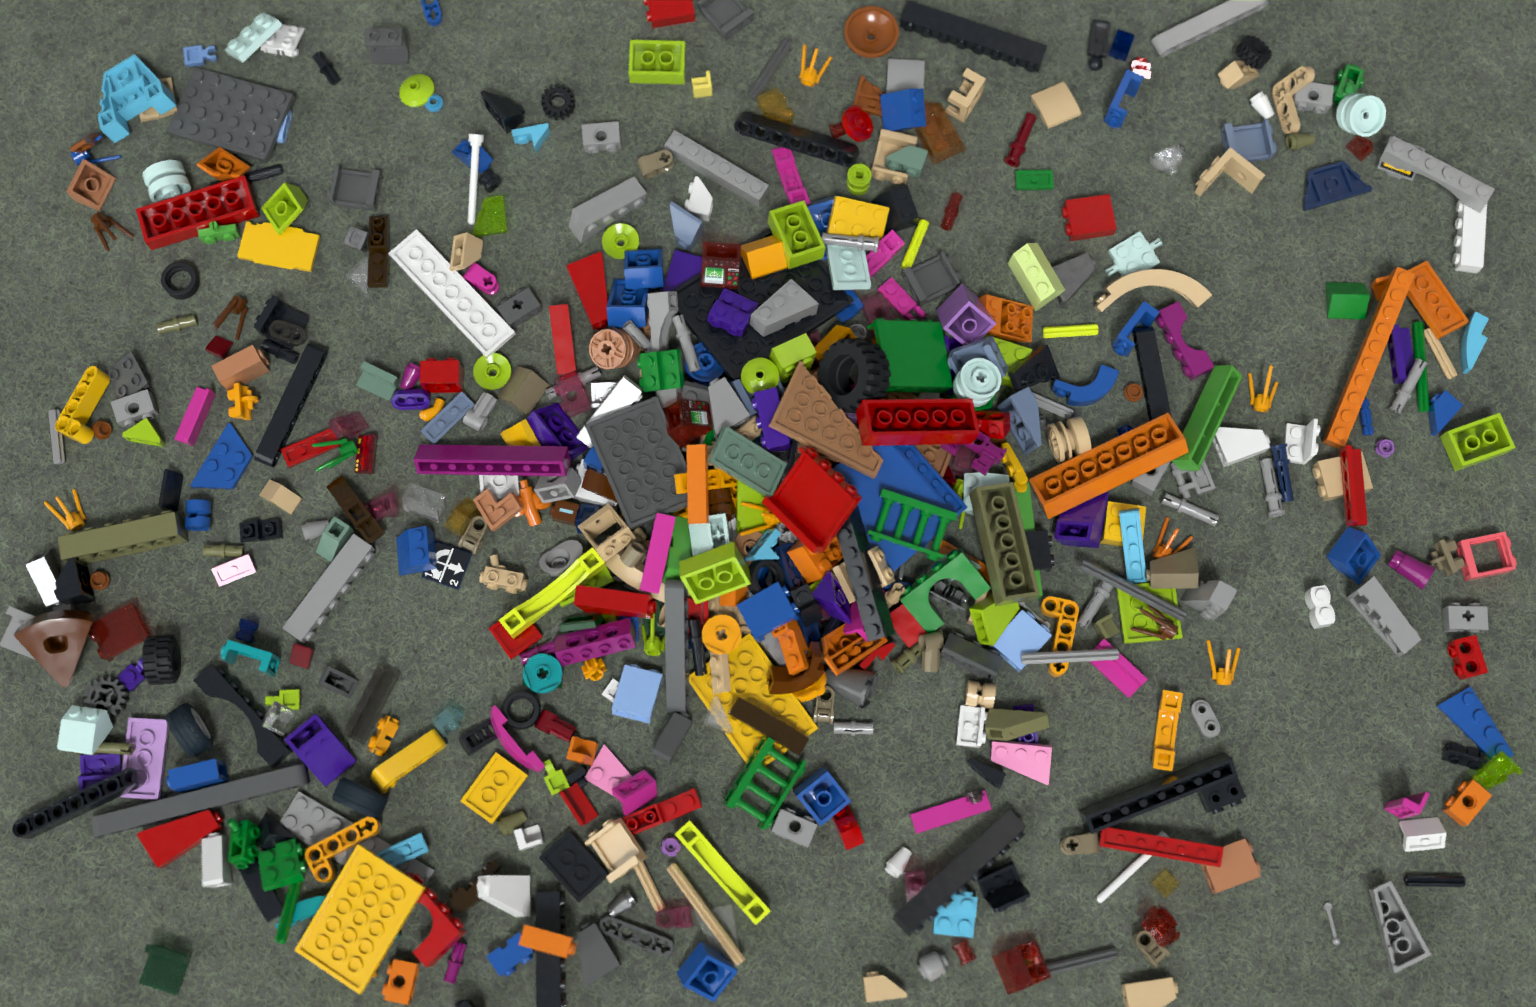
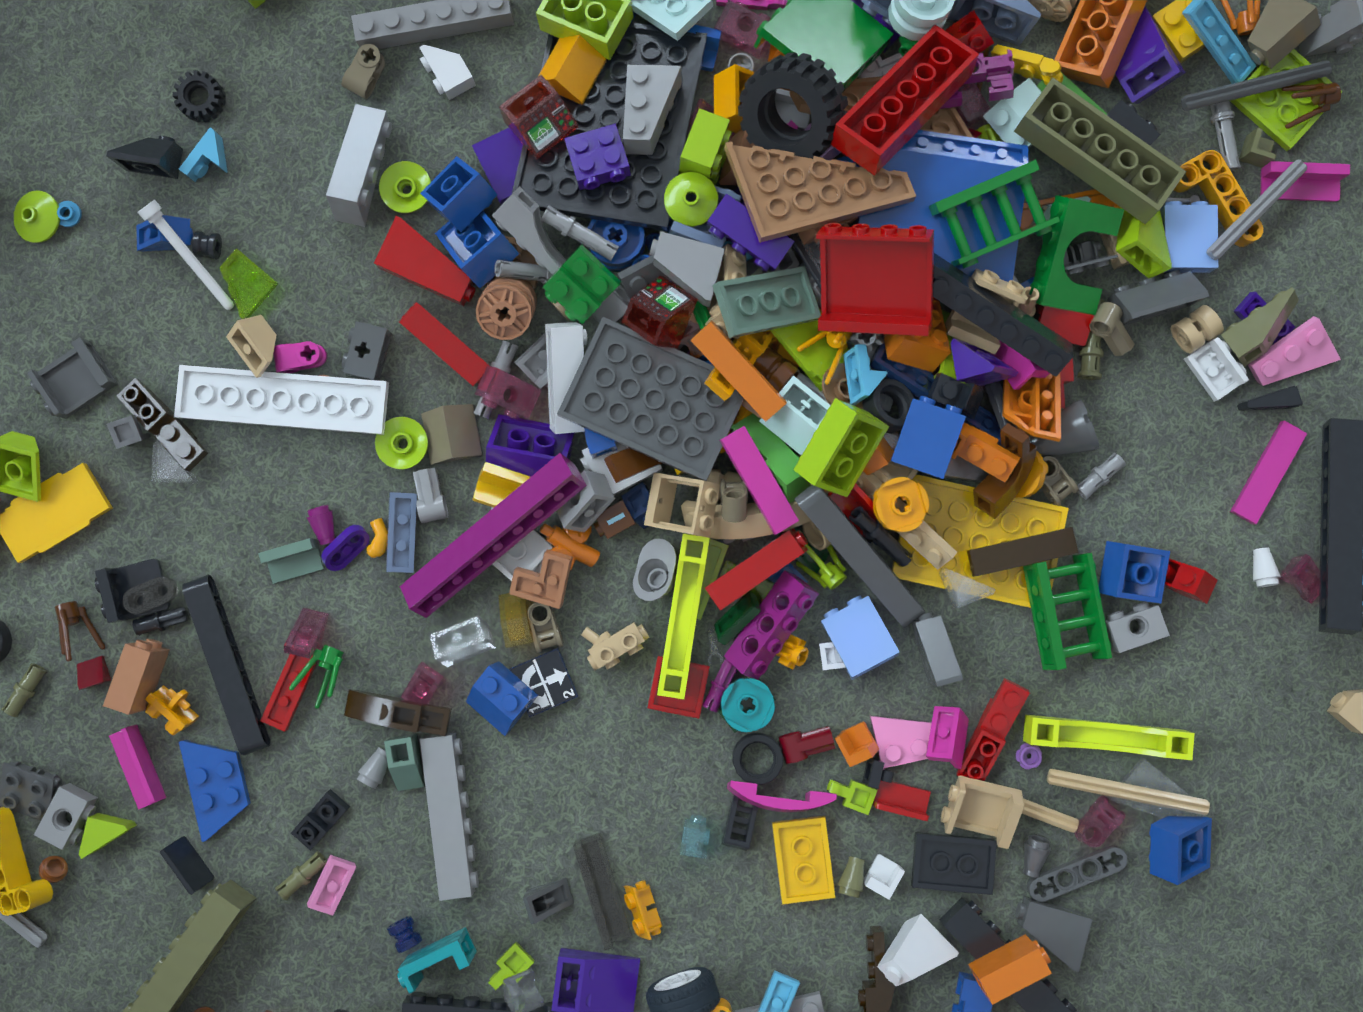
camera: 40 degrees left, 10 degrees up
(73, 520) = (115, 986): light orange plant -> none
(197, 515) = (240, 865): blue wheel -> none
(280, 496) = (306, 768): tan slope -> none
(301, 656) = (484, 906): dark red slope -> none
(366, 454) = (353, 644): slope -> none
(406, 760) = (693, 912): yellow beam -> none
(442, 376) = (354, 495): red brick -> none
(593, 131) = (280, 79): light grey brick -> none
(686, 227) = (459, 111): sand blue slope -> none
(975, 796) = (1283, 435): clear smoke plate -> none

